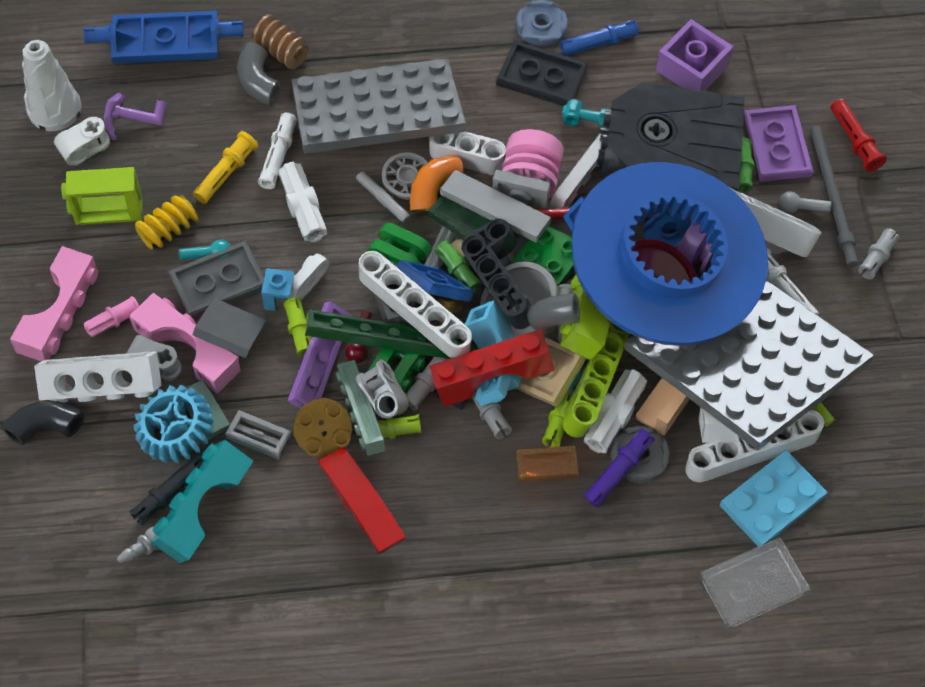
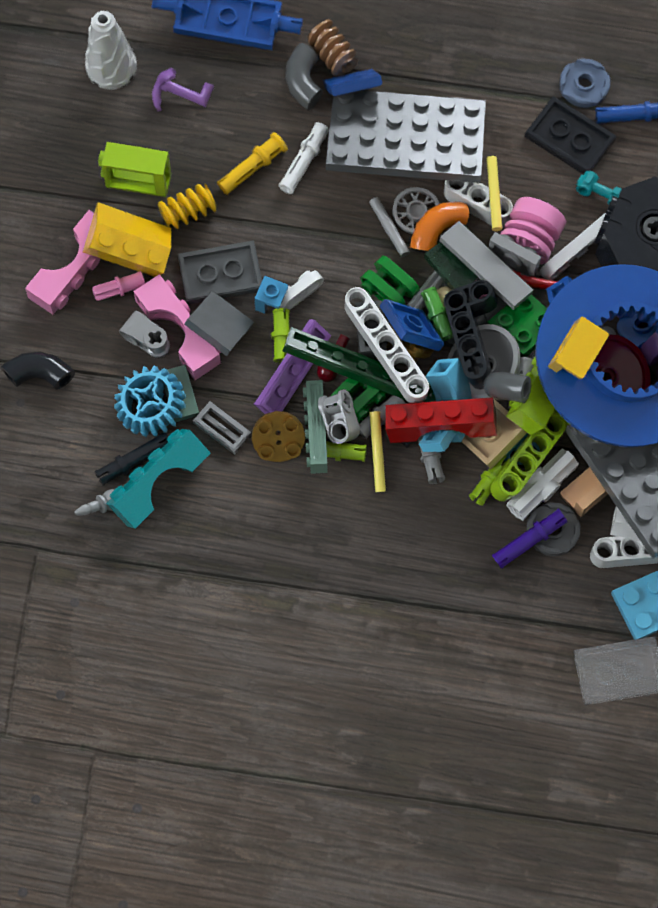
camera: 15 degrees right, 10 degrees up
(80, 142) = (126, 107): white piece -> none
(111, 267) = (128, 240): none -> yellow slope
(142, 367) = (133, 342): white brick -> none
(199, 252) = (227, 240): teal bar -> none
(302, 202) = (314, 215): white piece -> none
(309, 67) = (352, 82): none -> blue tile
(361, 500) = (296, 511): red slope -> none
(432, 418) = (377, 451): none -> light yellow bar
(483, 137) = (494, 193): none -> light yellow bar
(547, 463) = (467, 517): clear orange plate -> none
(620, 251) = (579, 348): none -> yellow panel

